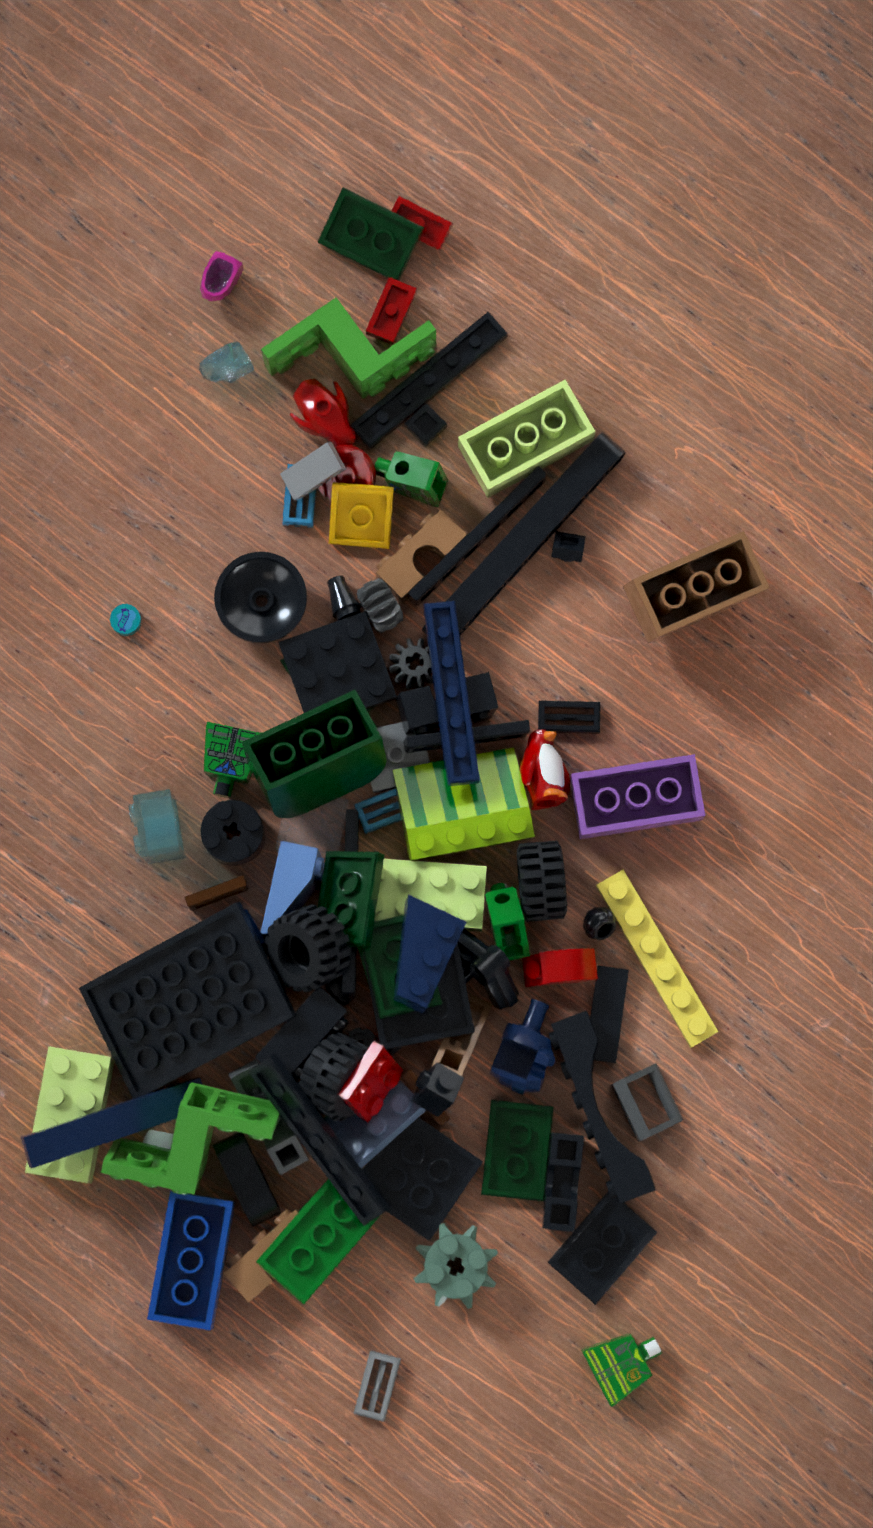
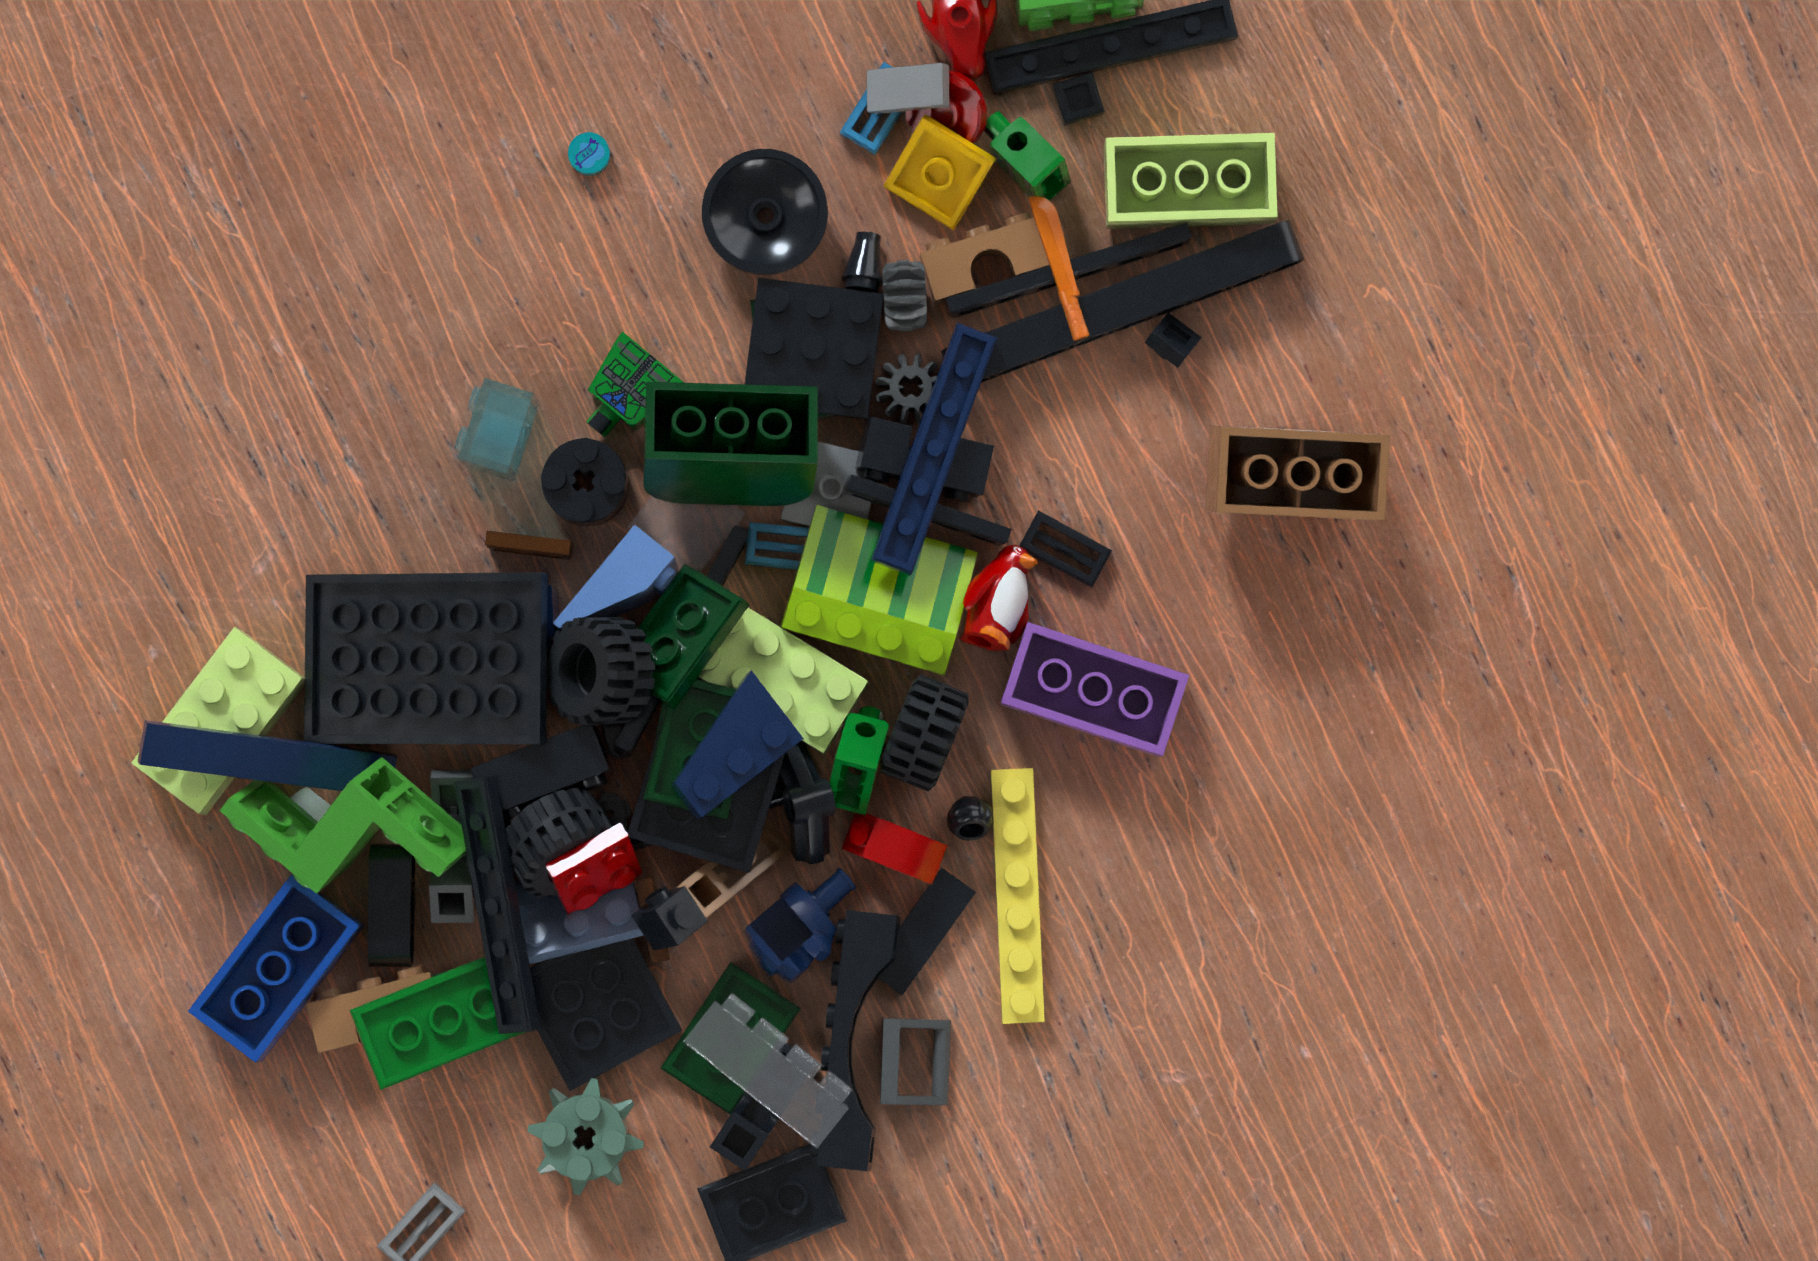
camera: 25 degrees right, 5 degrees up
(458, 520) = (1059, 261): none -> orange piece
(556, 1160) = (757, 1066): none -> clear windscreen

